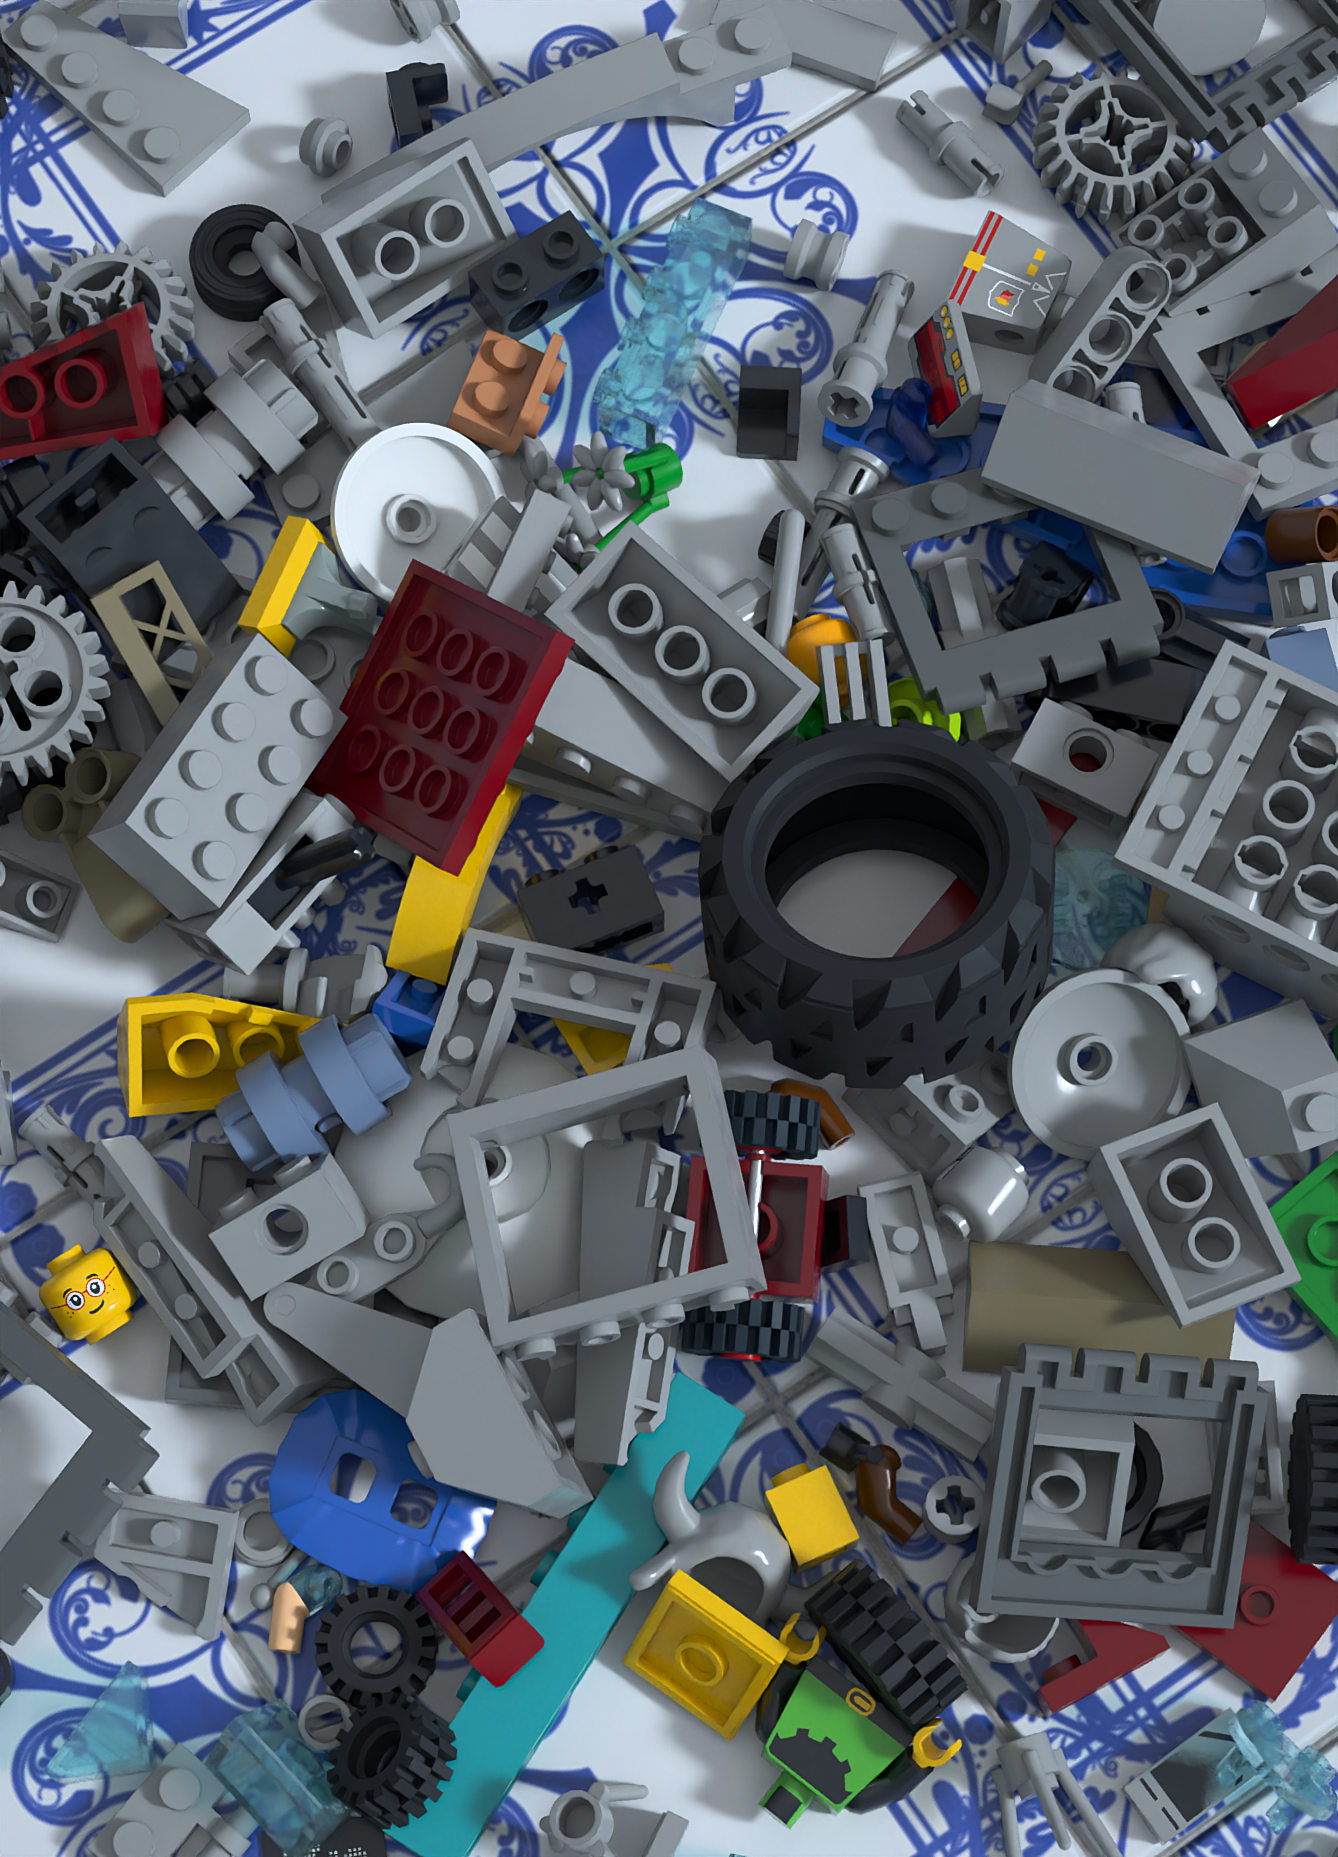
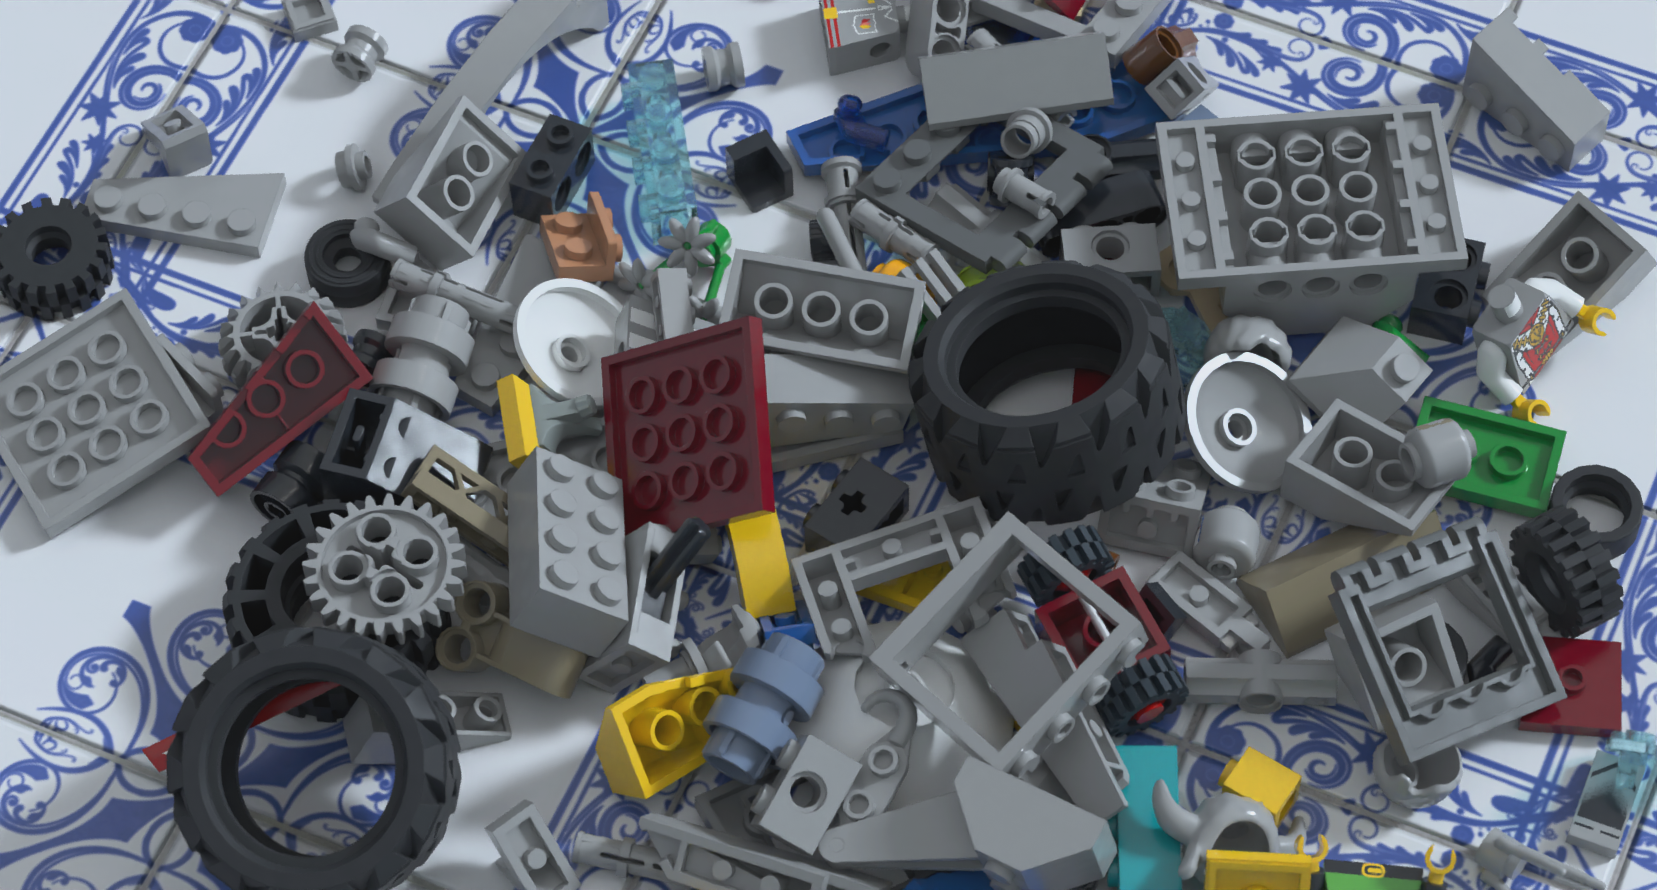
camera: 30 degrees left, 15 degrees down
(409, 97) = (392, 112): black bracket -> none
(849, 1448) = (1256, 736): black hand -> none
(862, 363) = (801, 106): light grey pin -> none
(878, 1496) = (1285, 749): reddish brown arm -> none
(886, 1645) = (1366, 820): black tyre -> none
(939, 1524) = (1344, 734): light grey bush -> none
(945, 360) = (856, 74): slope -> none
(1024, 633) = (1016, 188): none -> light grey pin
(1084, 553) = (1035, 124): none -> light grey piece
(1112, 1653) = (1498, 761): dark red slope -> none
(1274, 1250) = (1437, 453): none -> light grey head

